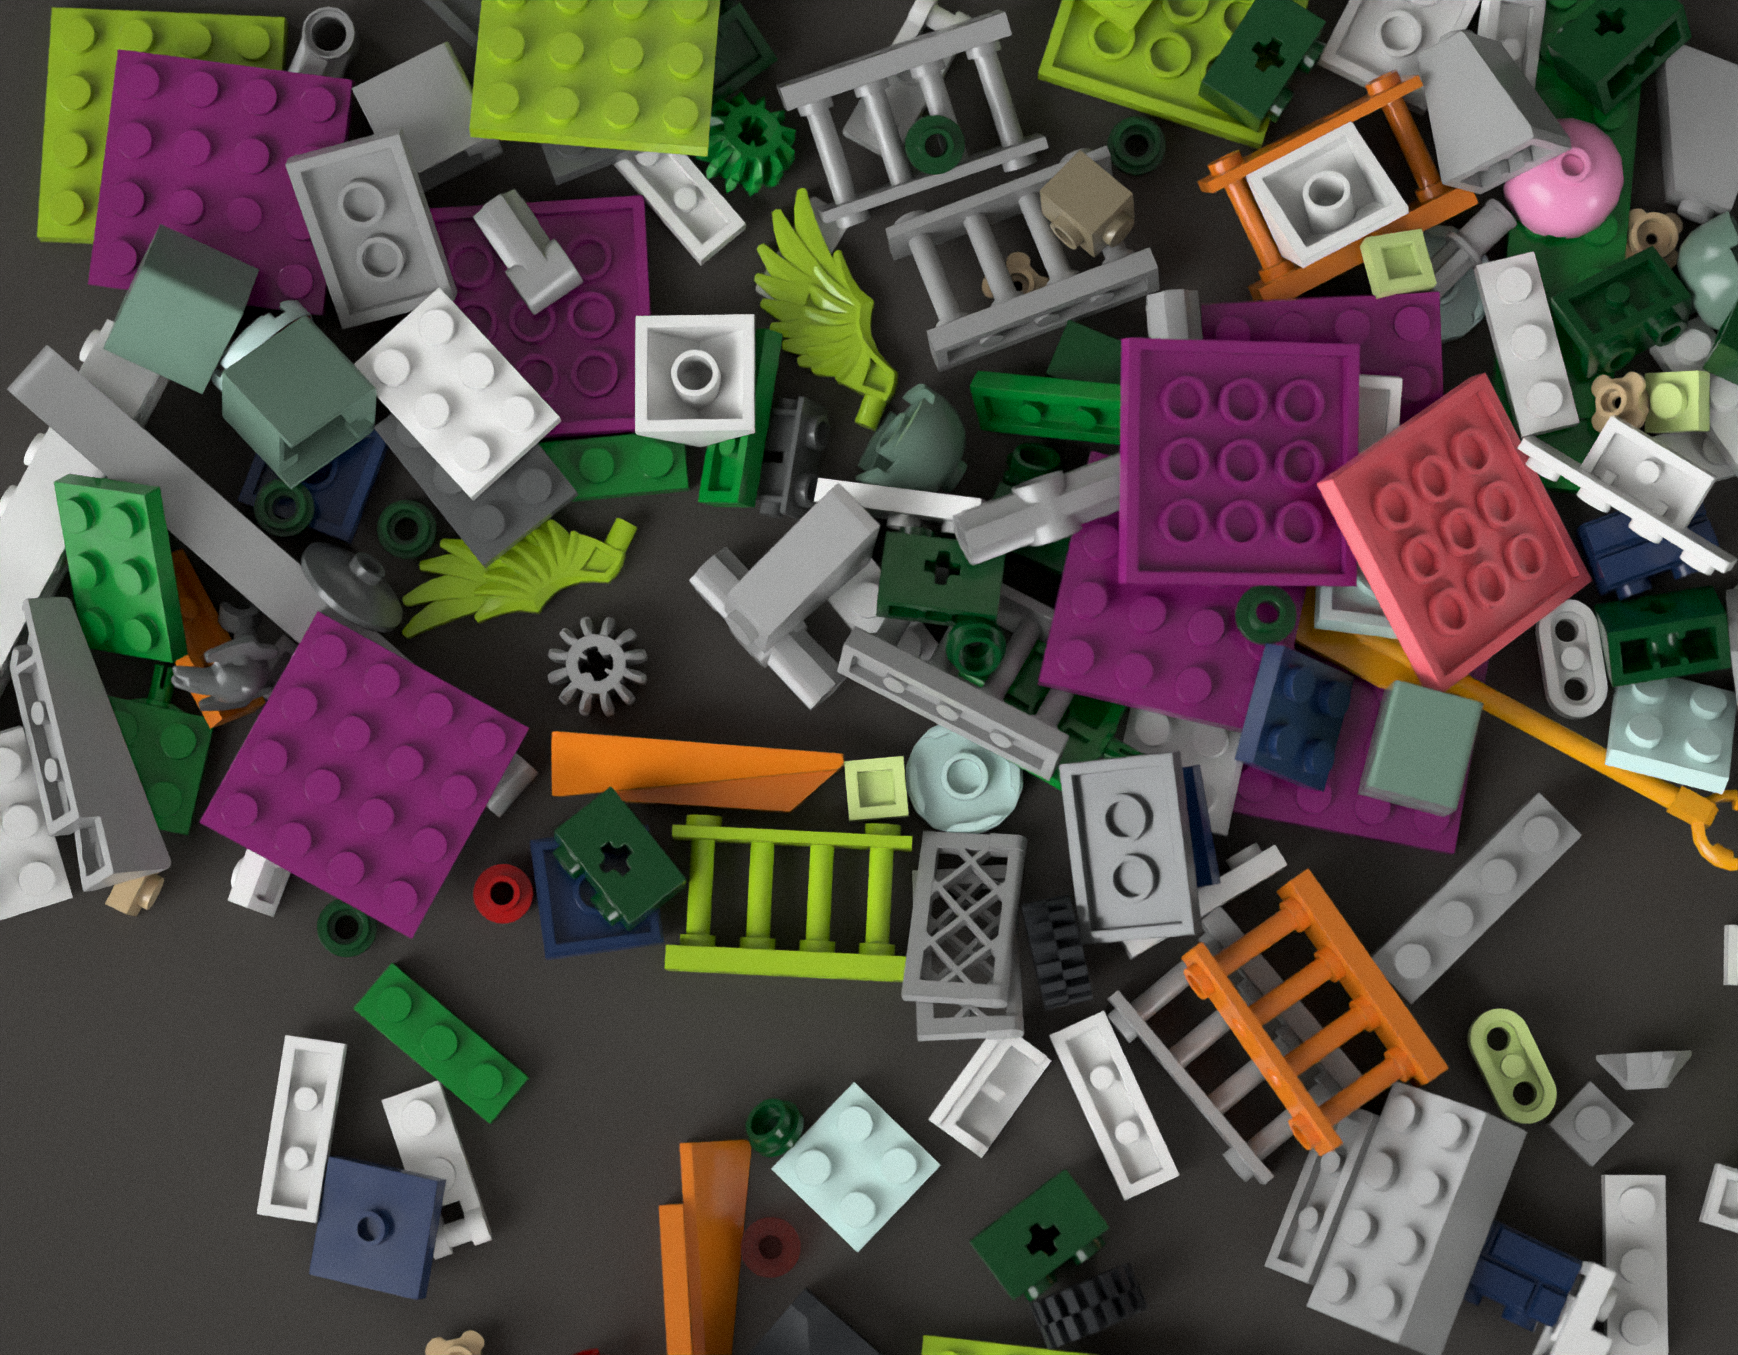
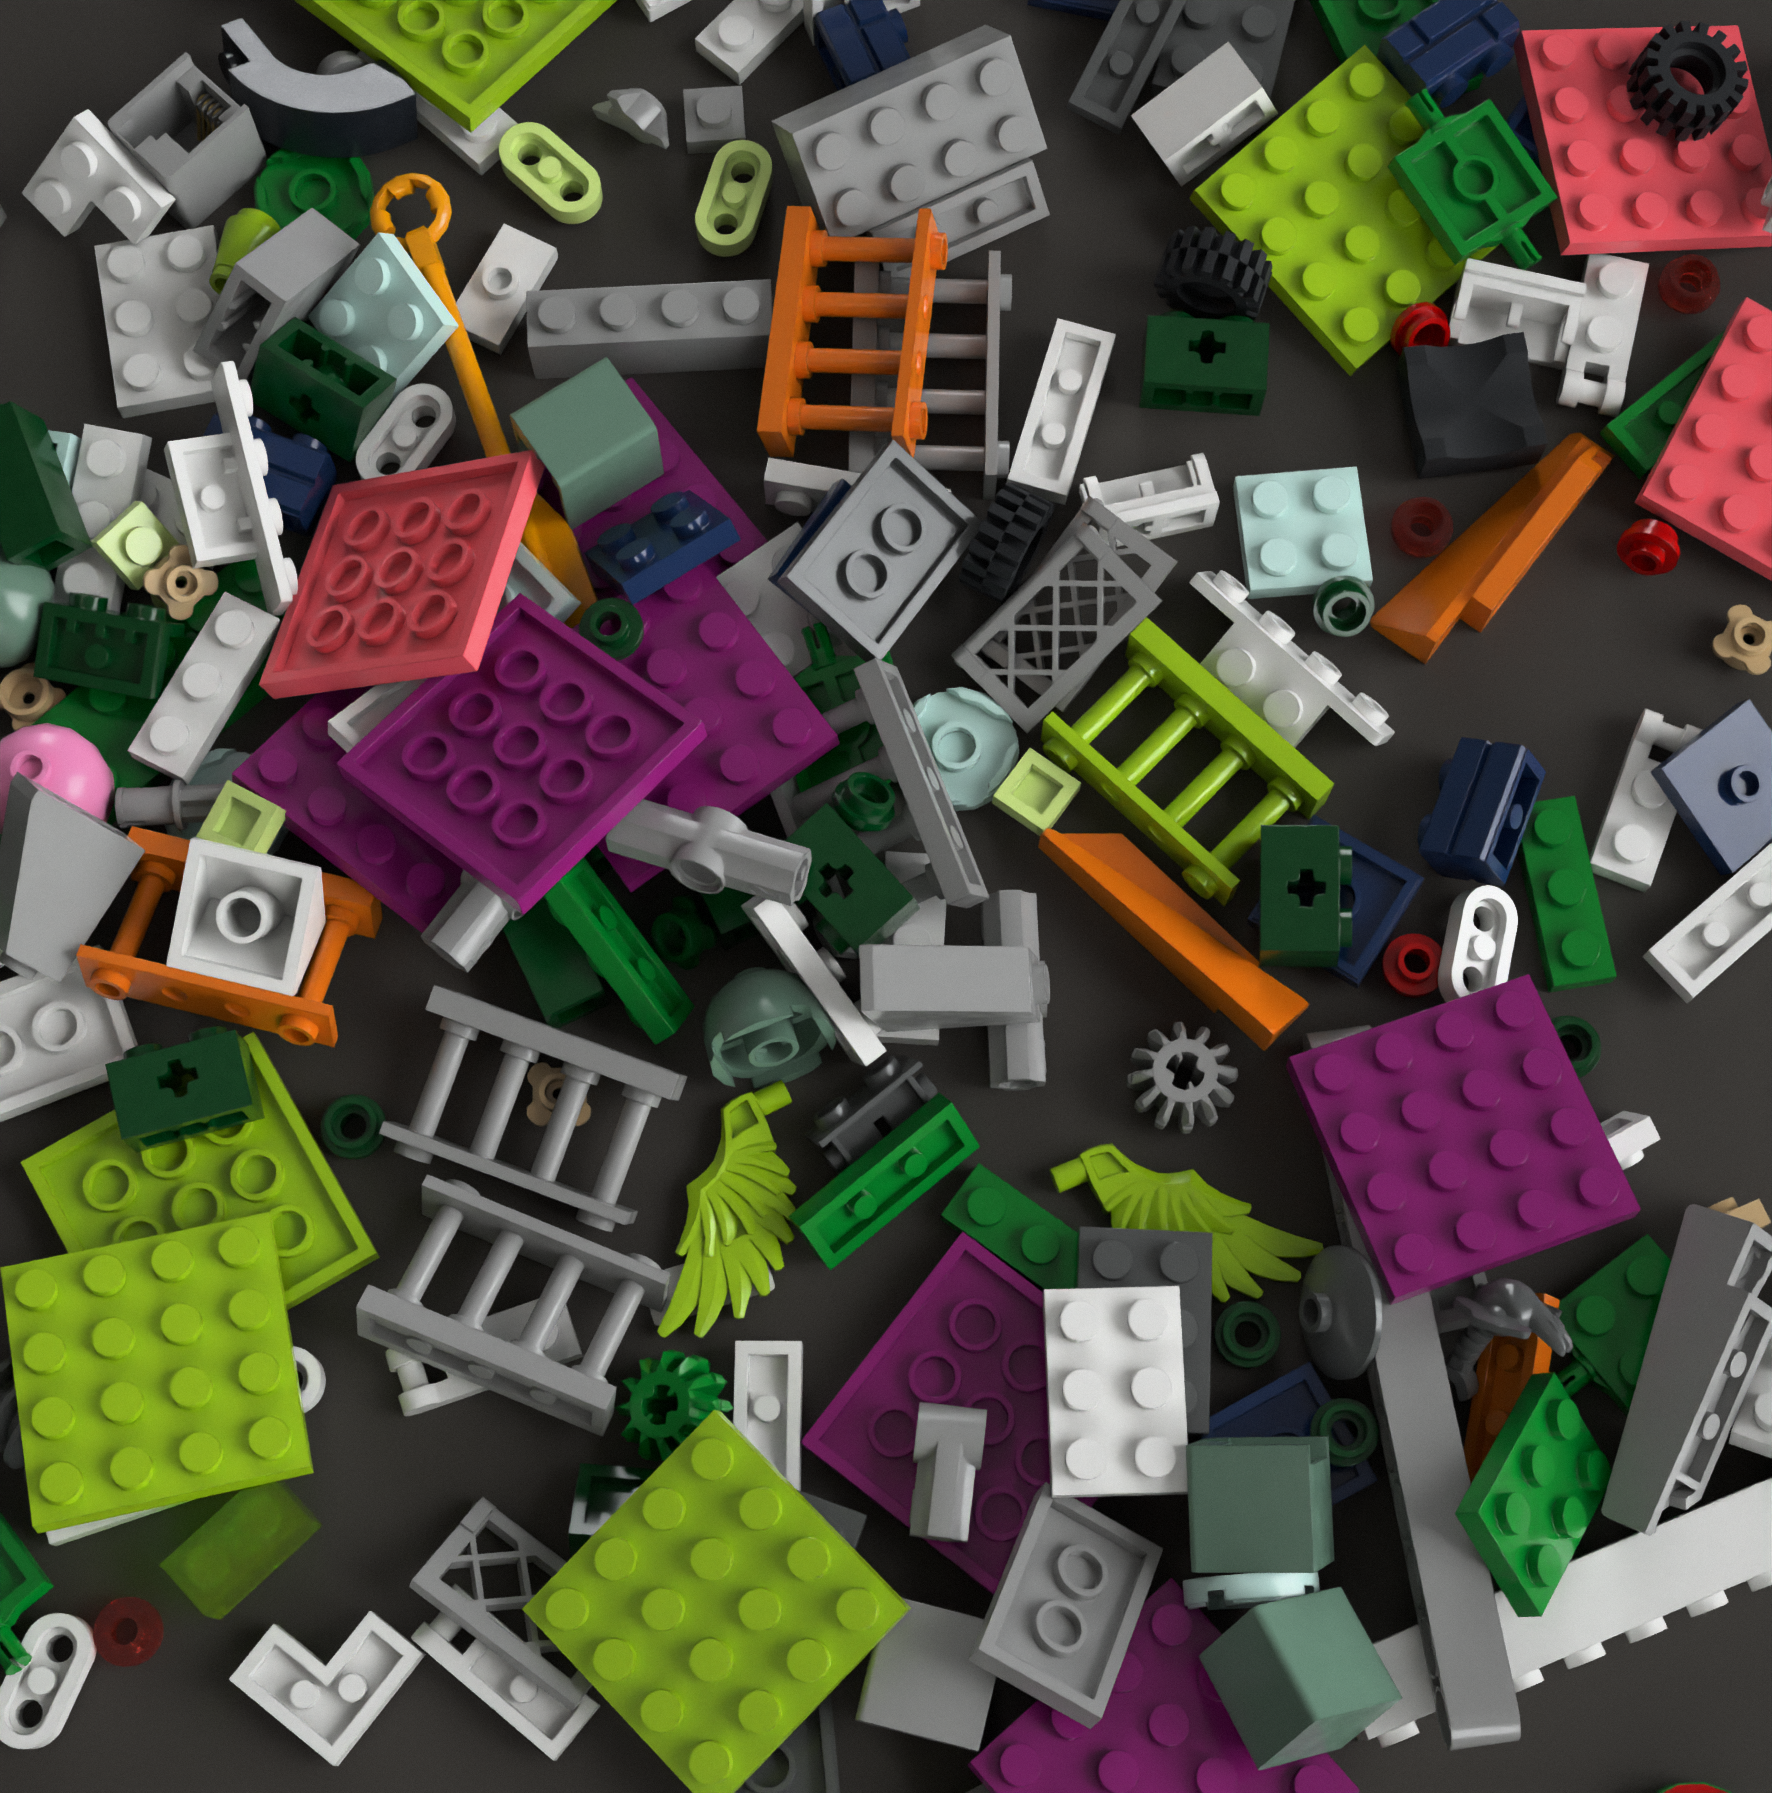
camera: 145 degrees left, 10 degrees down
(464, 944) = (1478, 953): none -> white plate
(545, 1045) = (1480, 811): none -> dark blue brick
(695, 377) = (893, 1236): white slope -> none
(780, 1031) = (1277, 676): none -> white bracket
(918, 135) = (514, 1272): dark green plate -> none
(1087, 206) = (442, 1085): dark tan brick -> none
(1617, 844) = (497, 290): none -> white plate
(1666, 964) = (554, 176): none -> yellowish green plate

